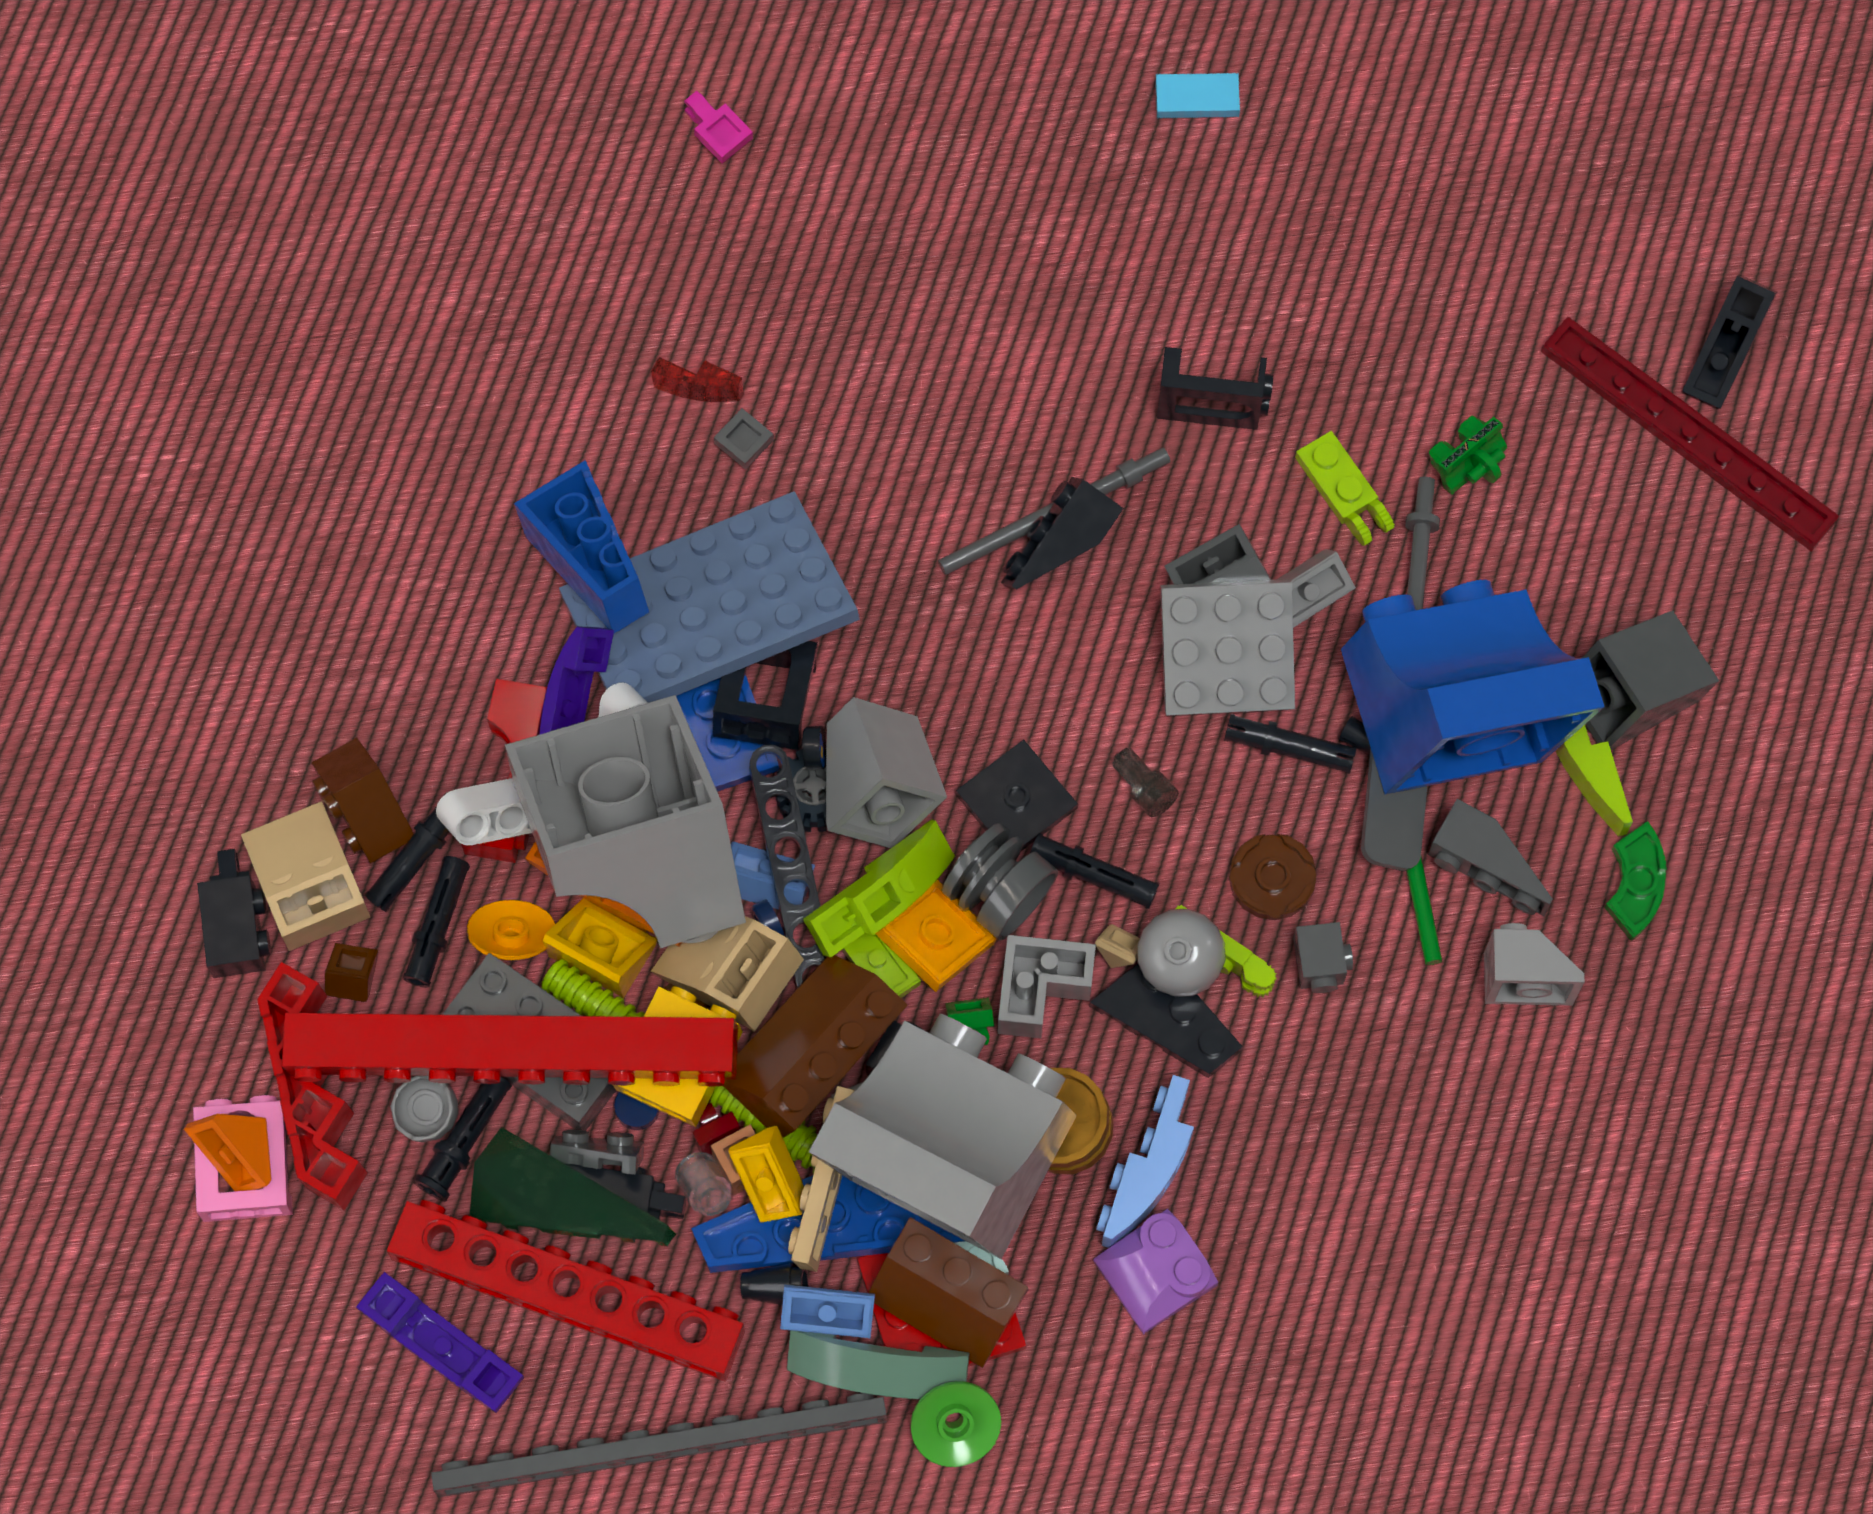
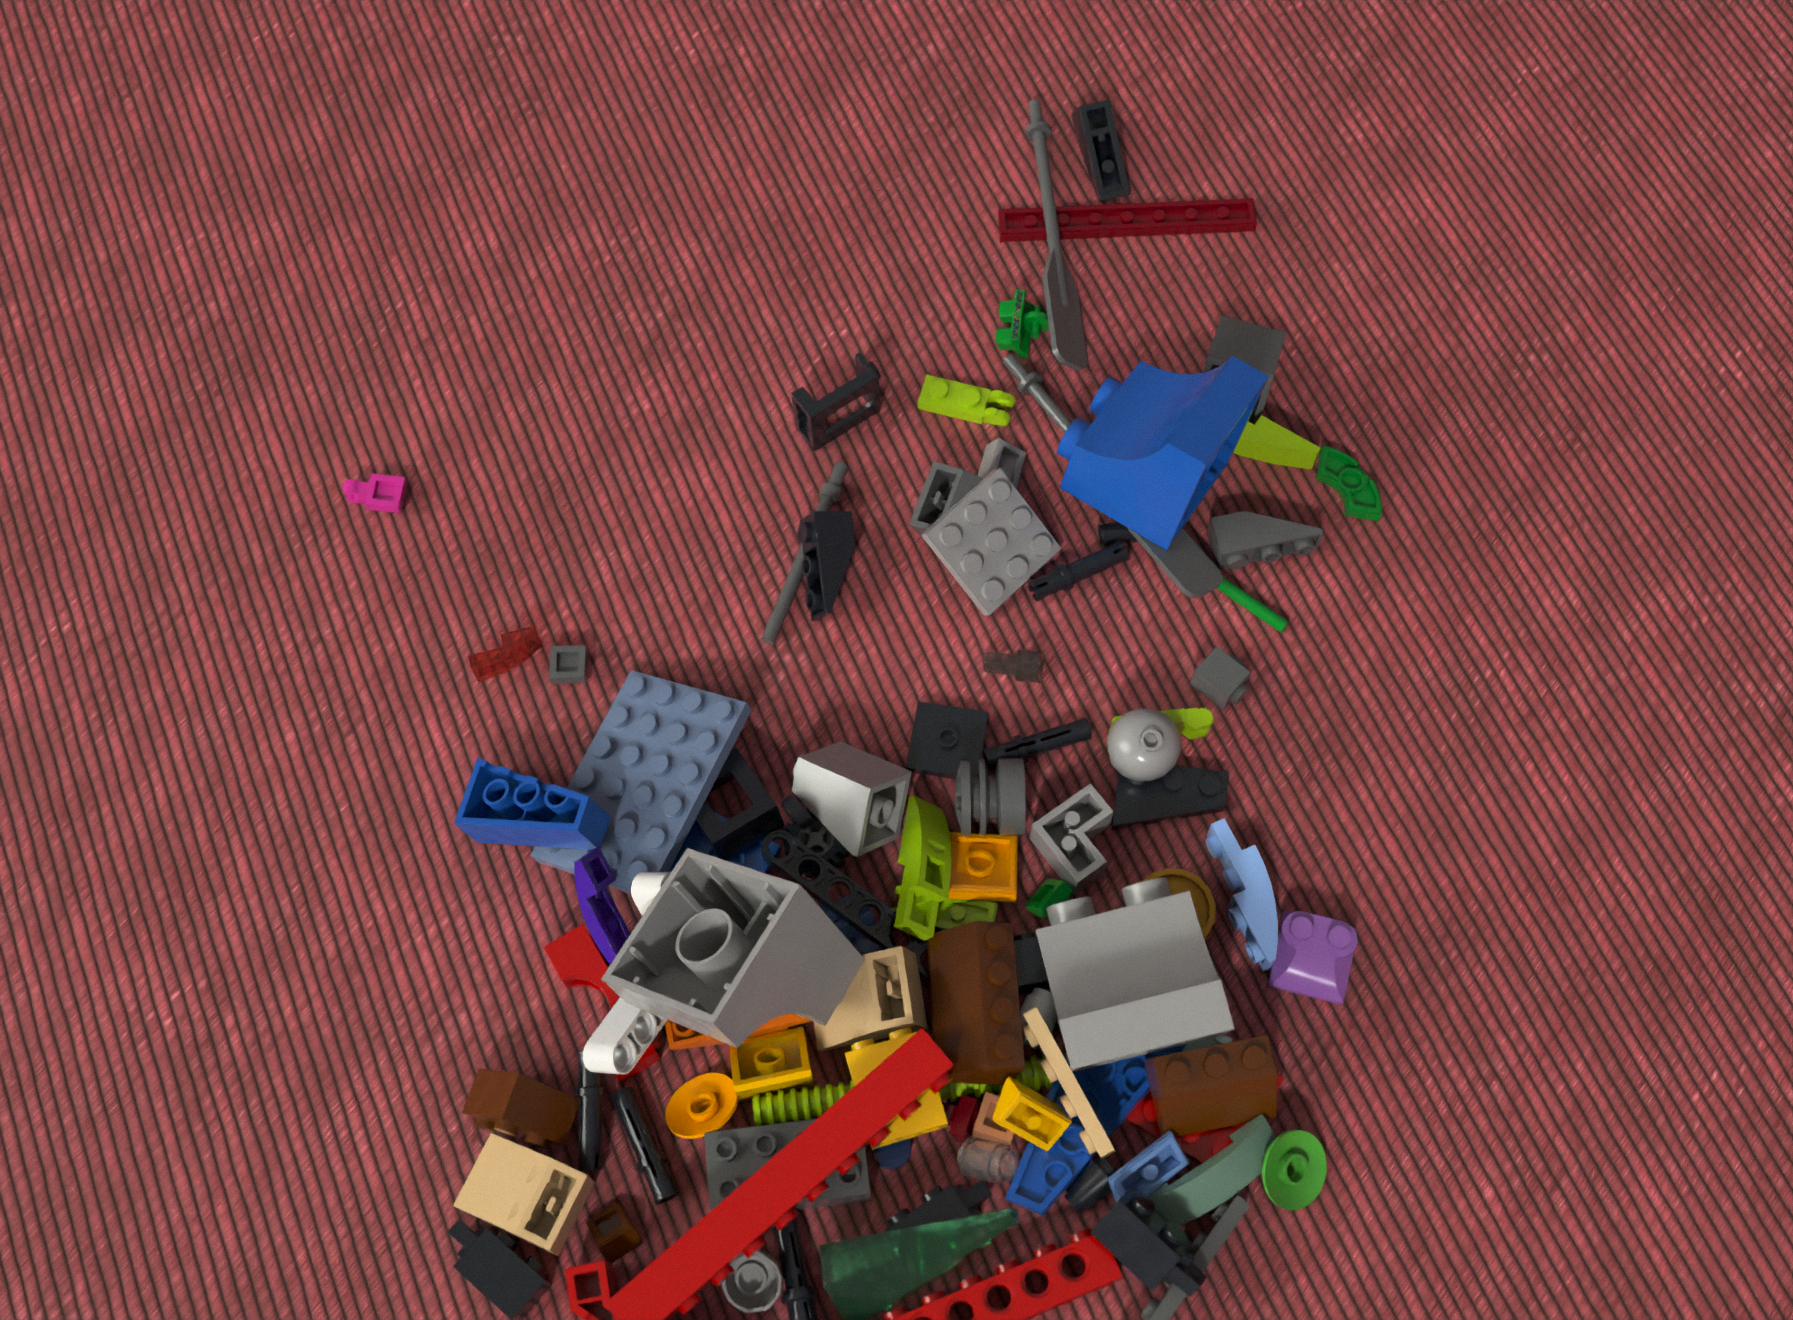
camera: 40 degrees left, 5 degrees down
(618, 1149) = (897, 1204): dark grey wing -> none
(766, 1364) = (1148, 1243): none -> black hinge
(1118, 946) = (1100, 775): tan slope -> none
(1197, 95) = (664, 253): medium azure tile -> none
(1272, 876) = (1143, 657): reddish brown tile -> none
(1528, 969) = (1348, 580): light grey slope -> none
(1549, 442) = (1059, 287): none -> dark grey piece

